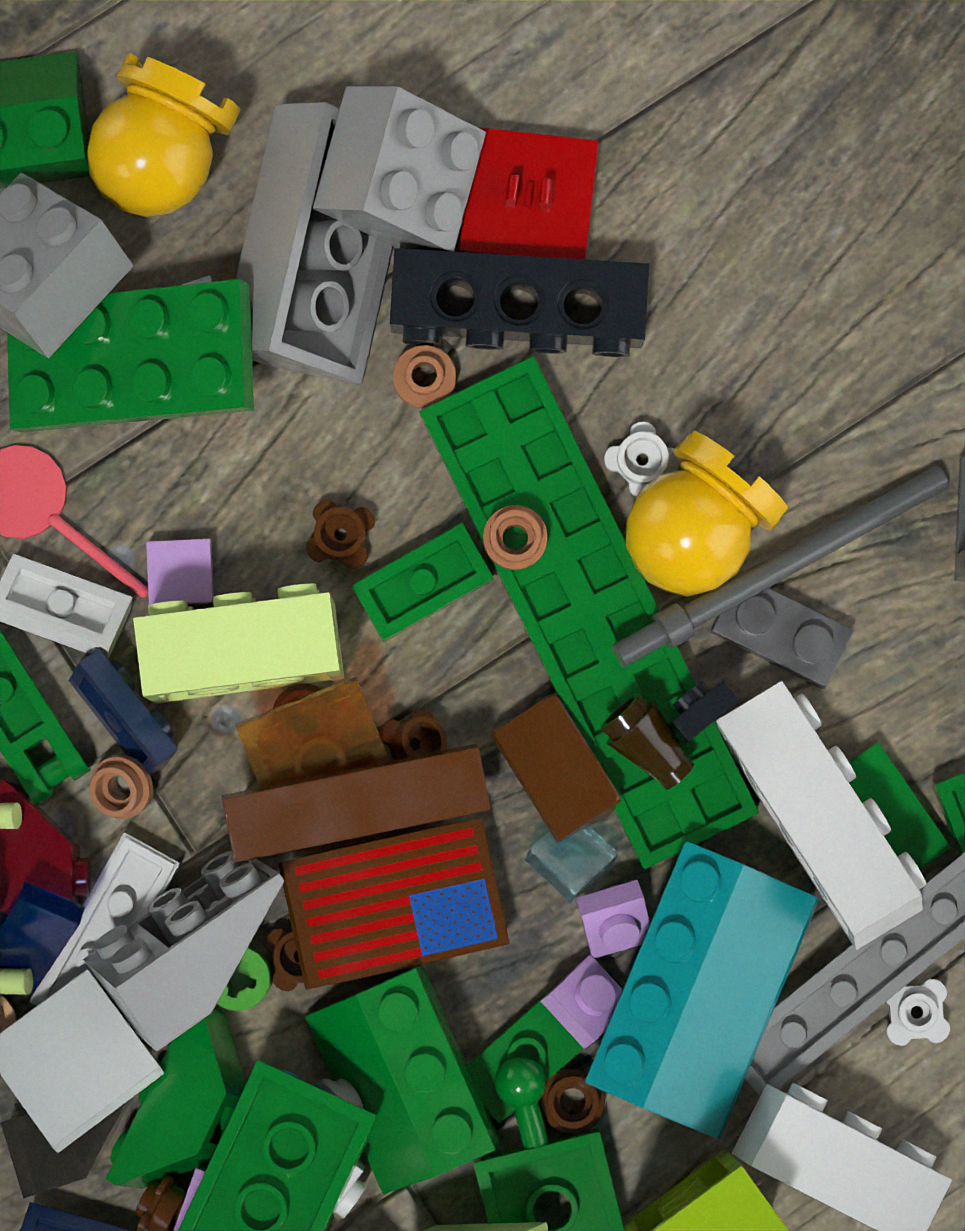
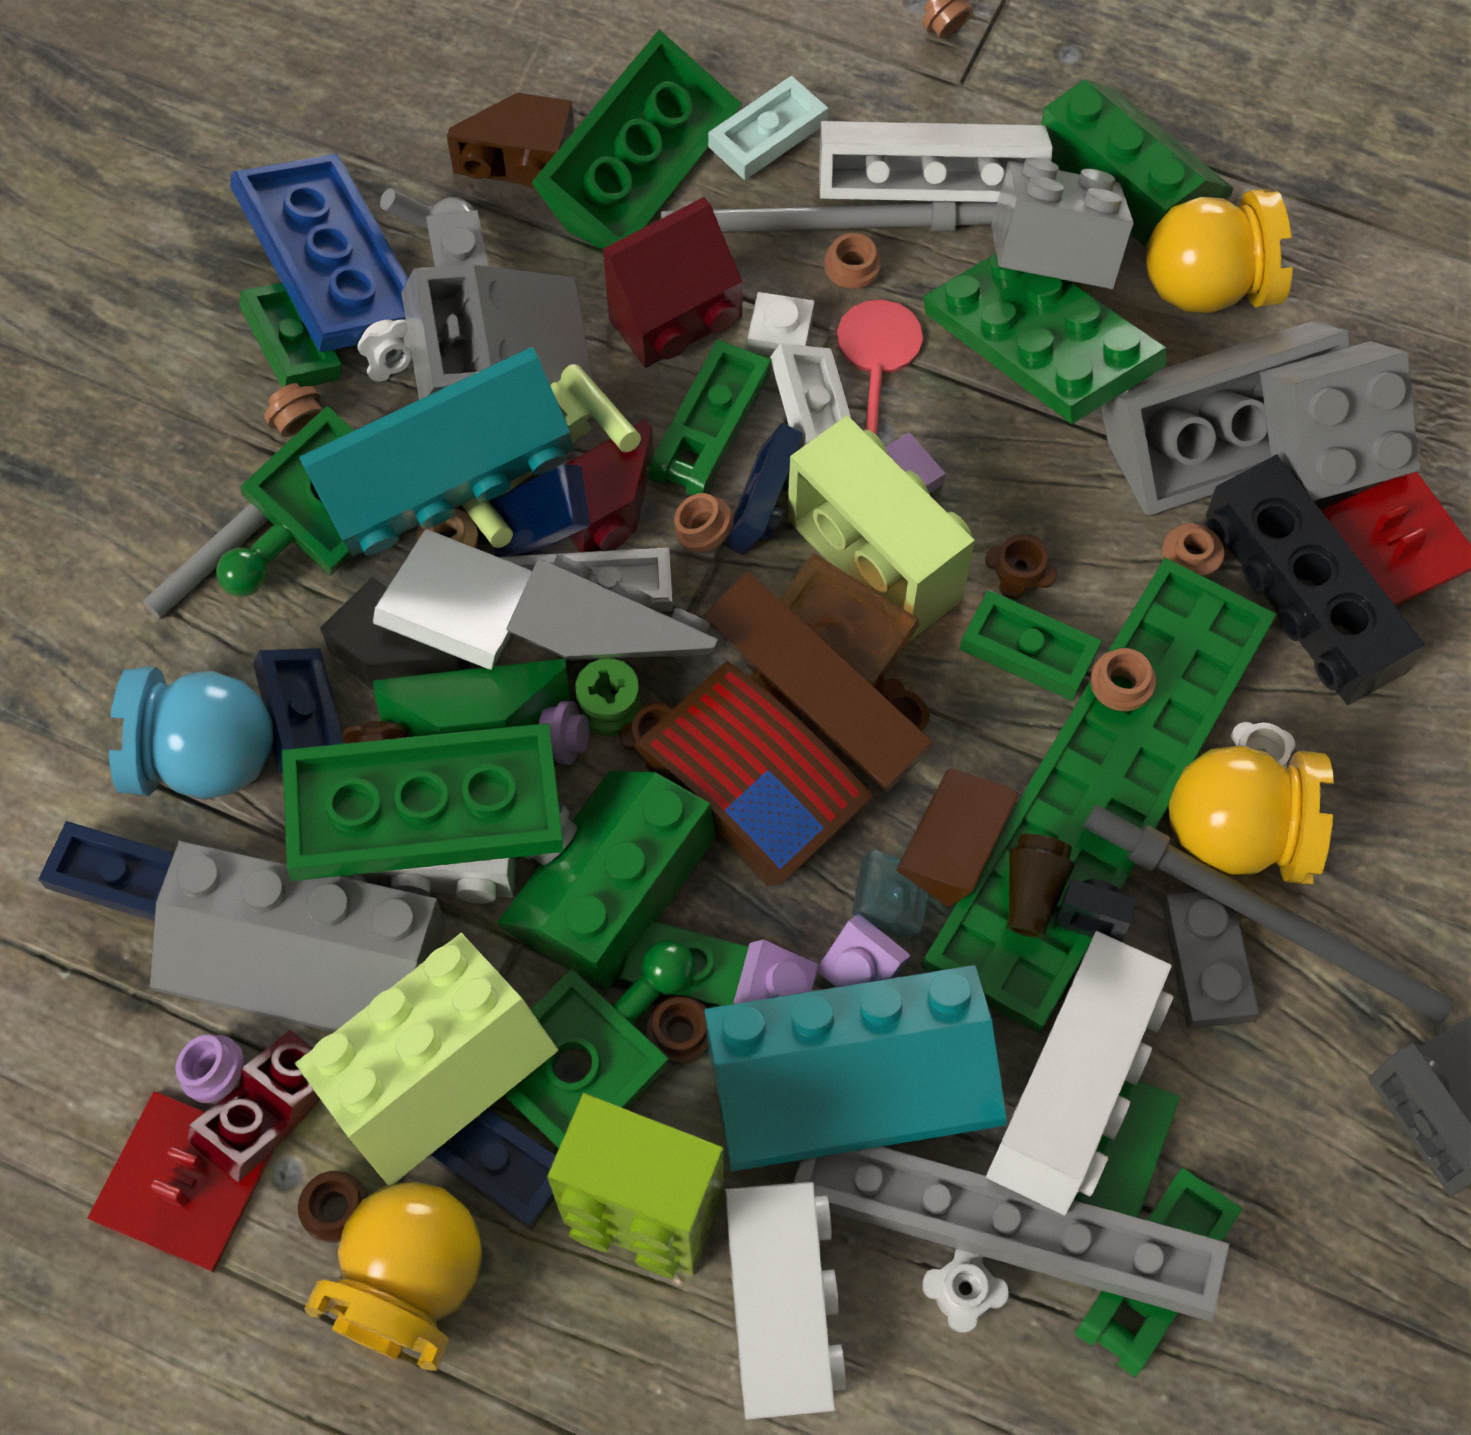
camera: 60 degrees right, 20 degrees down
(249, 1037) = (568, 731): none -> lavender plate

